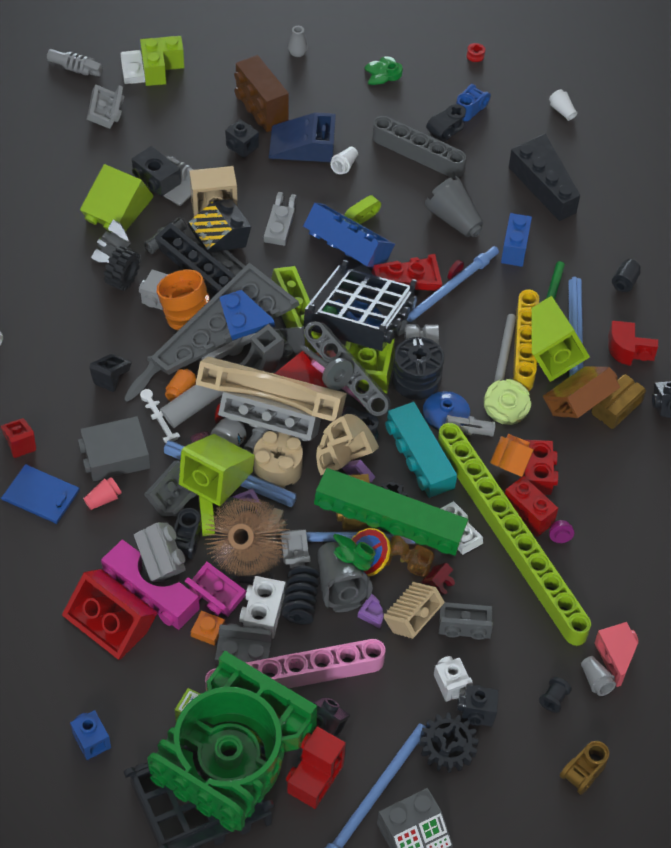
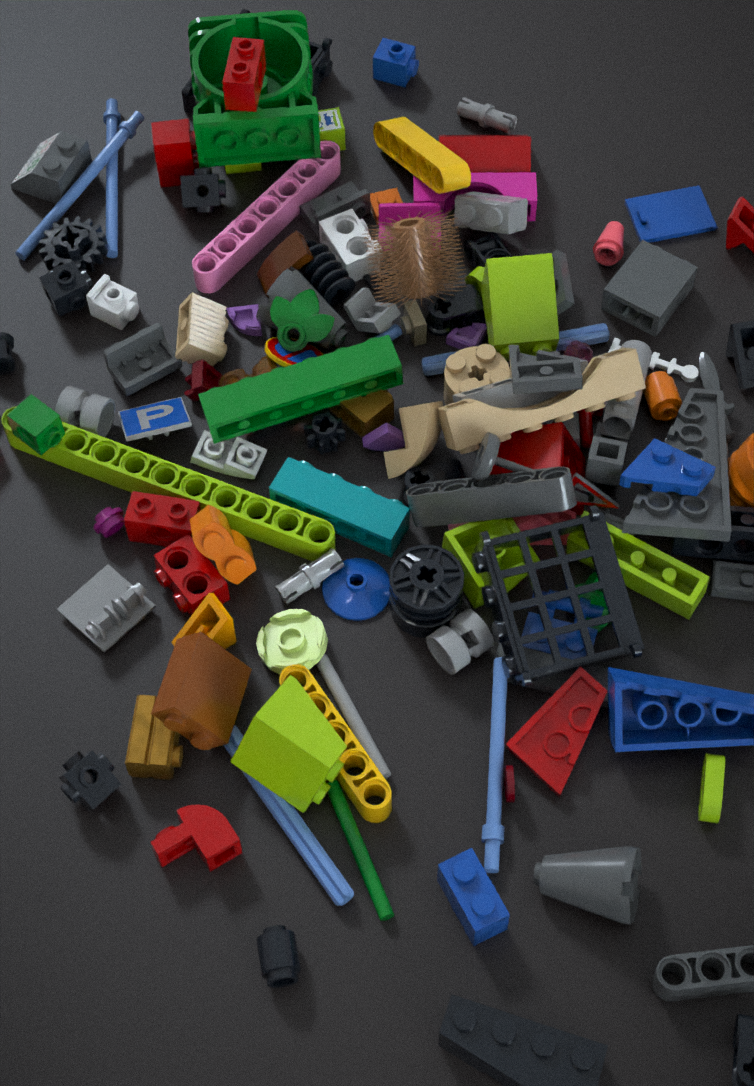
camera: 145 degrees right, 5 degrees up
(74, 643) = (486, 115): none -> light grey pin
(162, 622) = (422, 155): none -> yellow beam
(254, 702) = (244, 74): none -> red brick
(259, 394) = (543, 372): none -> dark grey wing
(323, 614) = (289, 253): none -> reddish brown slope
(337, 813) = (127, 130): none -> medium blue bar
(488, 573) = (154, 419): none -> piece
(527, 604) = (86, 412): none -> light grey wheel
(551, 429) = (211, 620): none -> light orange slope
(573, 594) = (36, 424): none -> green brick
(597, 488) = (106, 607): none -> light grey hinge

